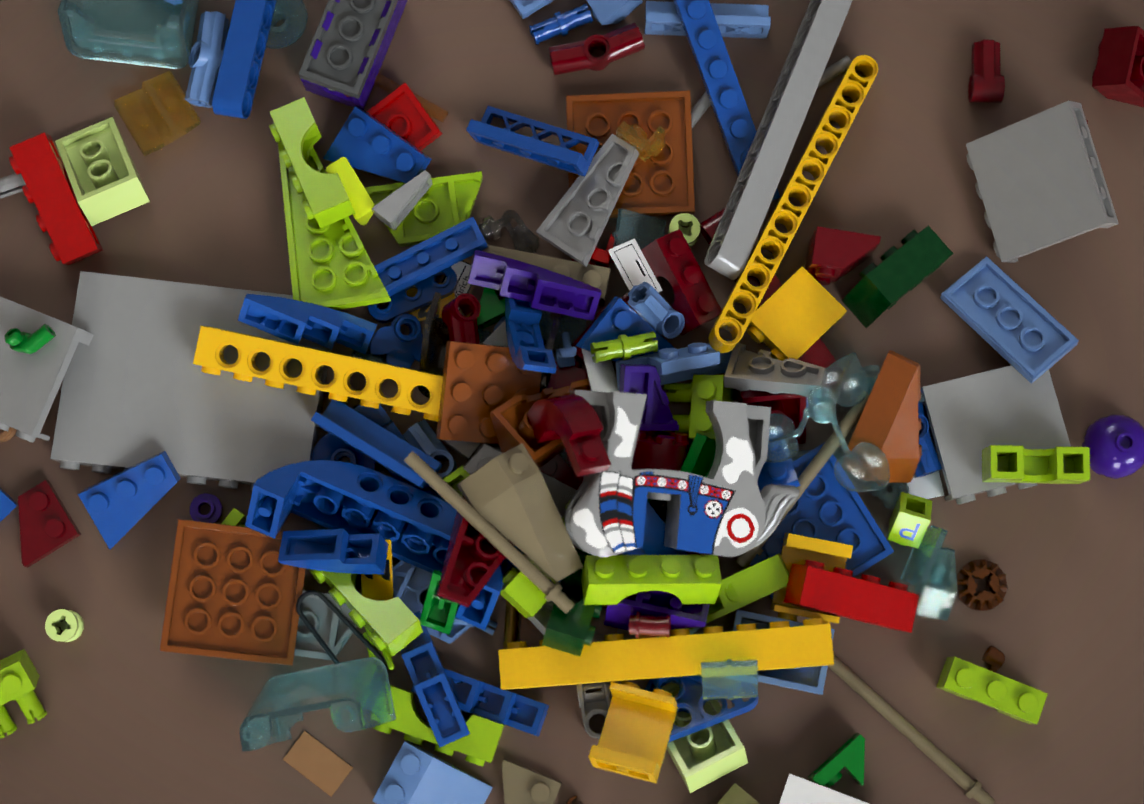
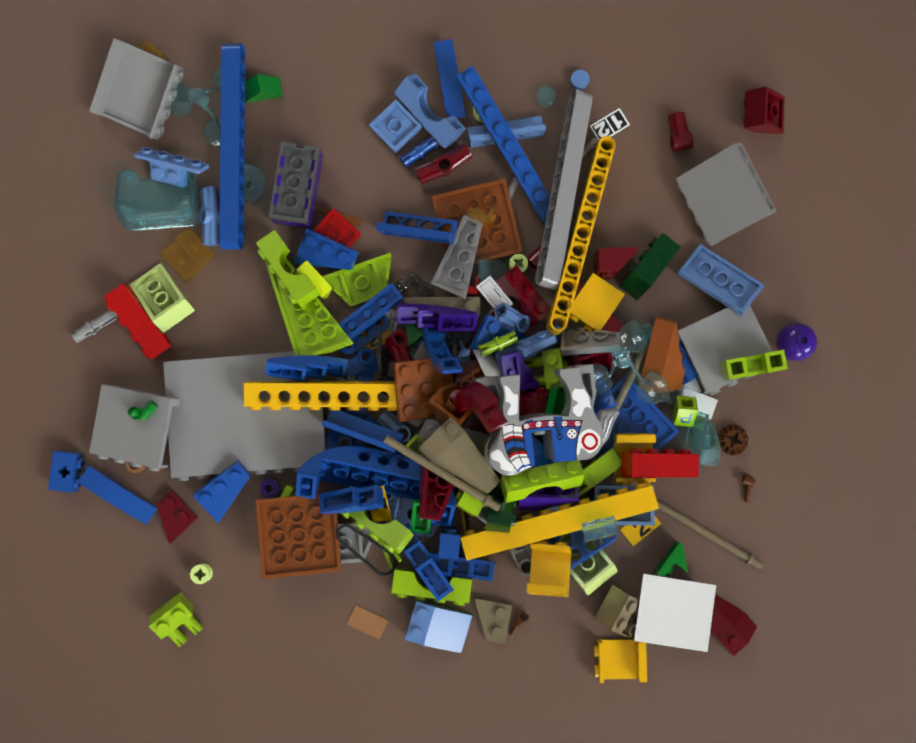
camera: 15 degrees left, 5 degrees up
(353, 690) = (377, 579): clear light blue windscreen -> none
(399, 204) = (345, 283): light grey slope -> none
(478, 656) = (449, 543): none -> blue brick
(649, 625) = (546, 506): dark red pin -> none
(794, 704) = (636, 533): none -> yellow sticker
(877, 40) = (610, 124): none -> sticker
(943, 513) = (705, 403): none -> white sticker
(992, 689) = (751, 500): lime arch -> none

